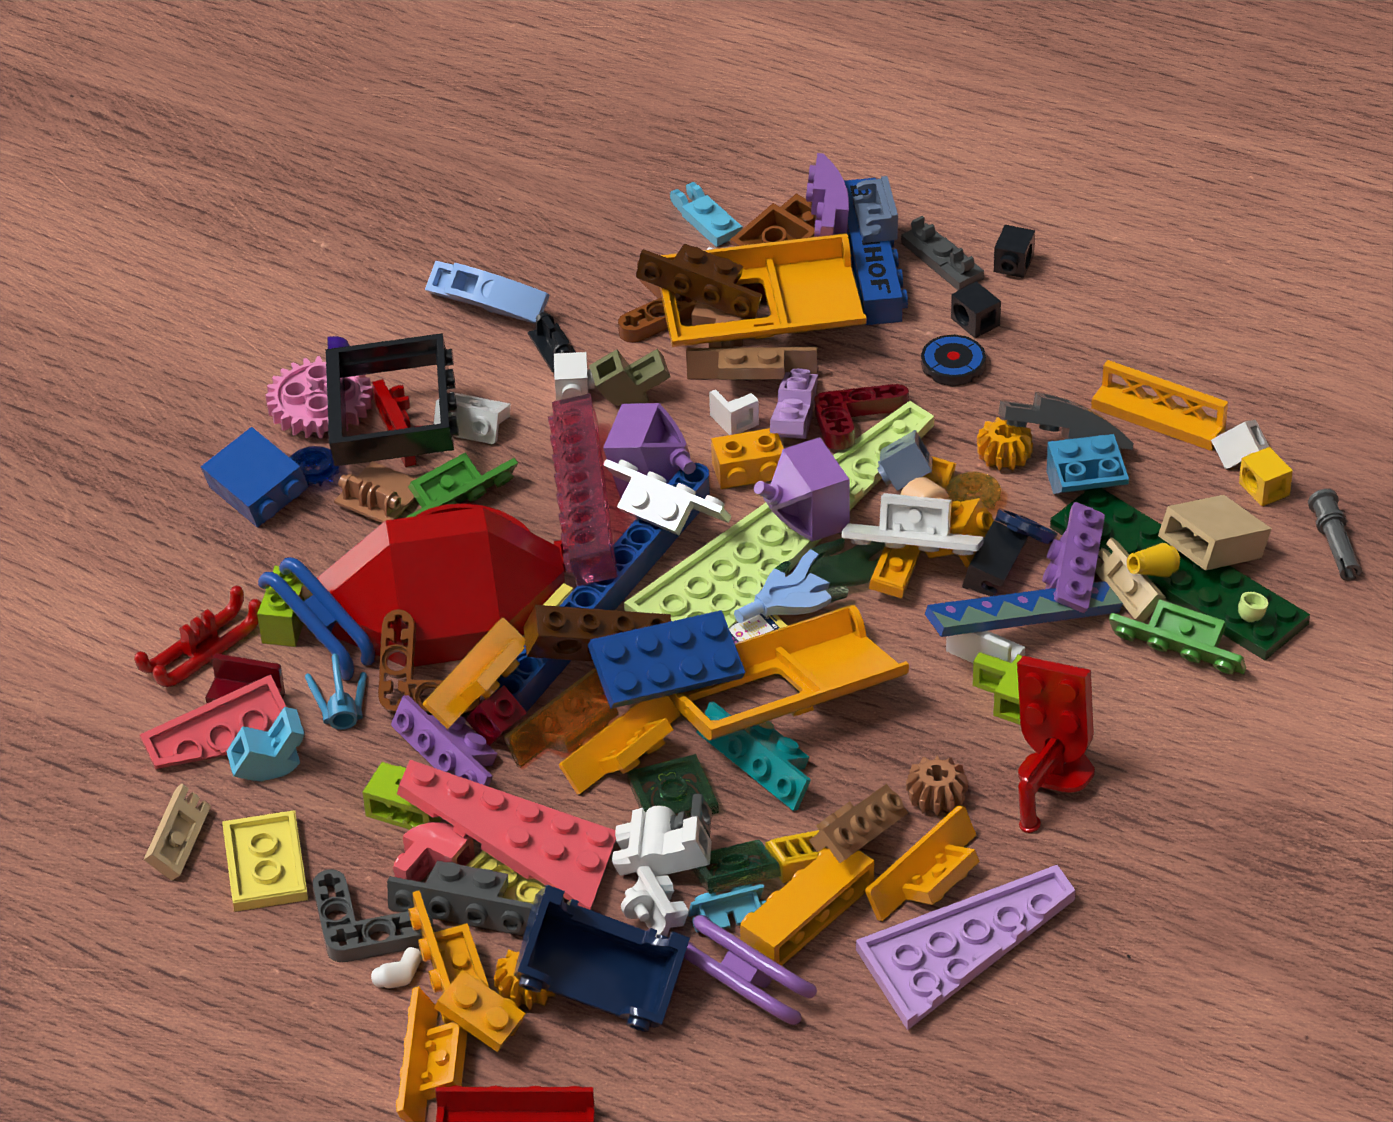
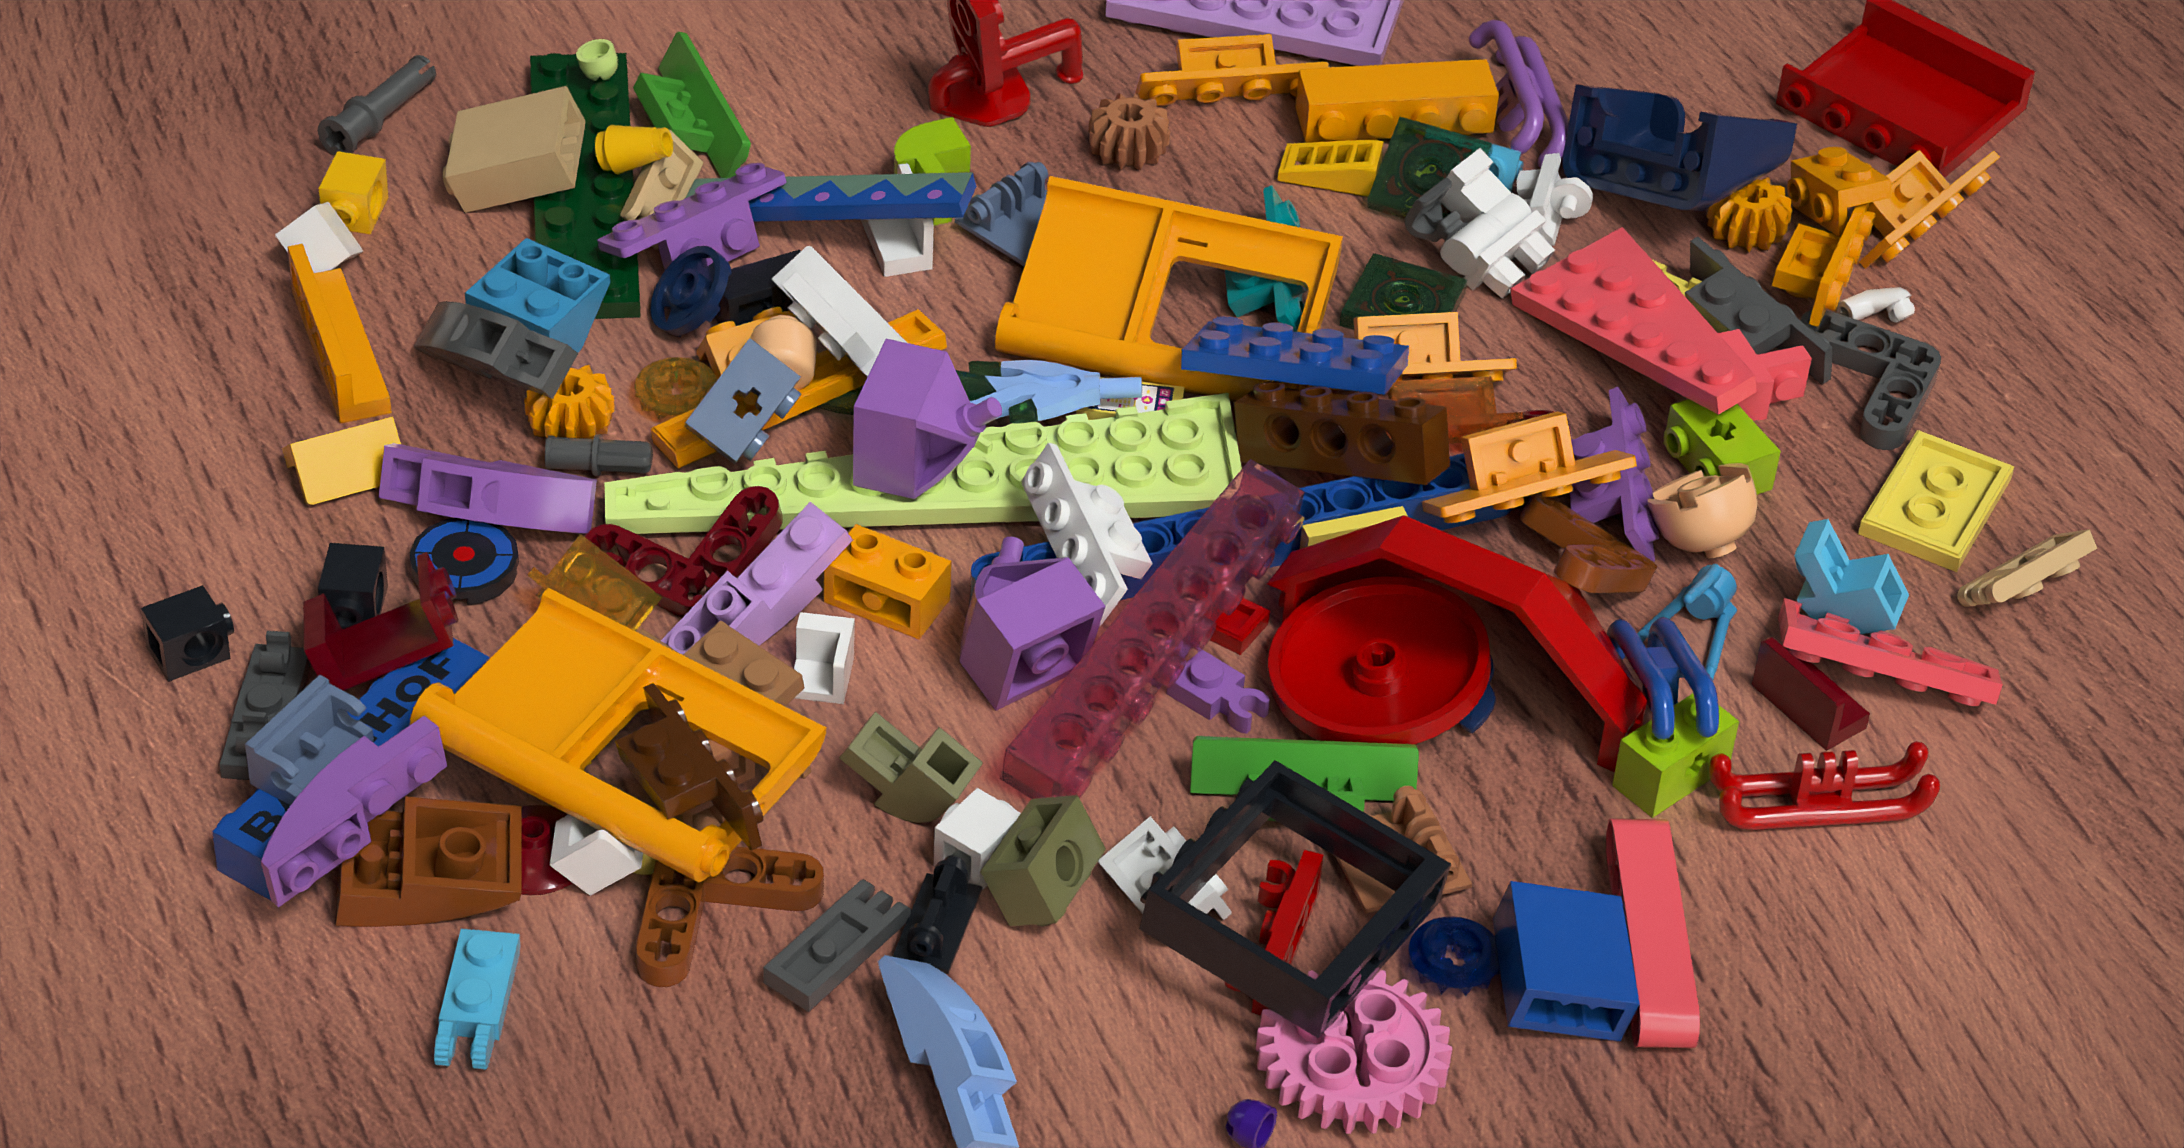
camera: 145 degrees left, 0 degrees up
(228, 522) = (1646, 878): none -> coral beam
(378, 733) = (1706, 511): none -> light nougat cylinder
(527, 374) = (1043, 861): none -> olive brick
(542, 517) = (1215, 687): none -> medium lavender plate
(584, 308) = (835, 945): none -> dark grey hinge
(857, 825) = (1278, 123): medium nougat bracket -> none
(870, 365) = (599, 583): none -> clear yellow bracket
(926, 279) = (385, 640): none -> dark red panel
(930, 699) = (1009, 211): none -> sand blue hinge
(959, 436) = (598, 454): none -> dark grey axle
(977, 372) = (487, 491): none -> medium lavender slope
(1072, 362) = (341, 460): none -> yellow panel

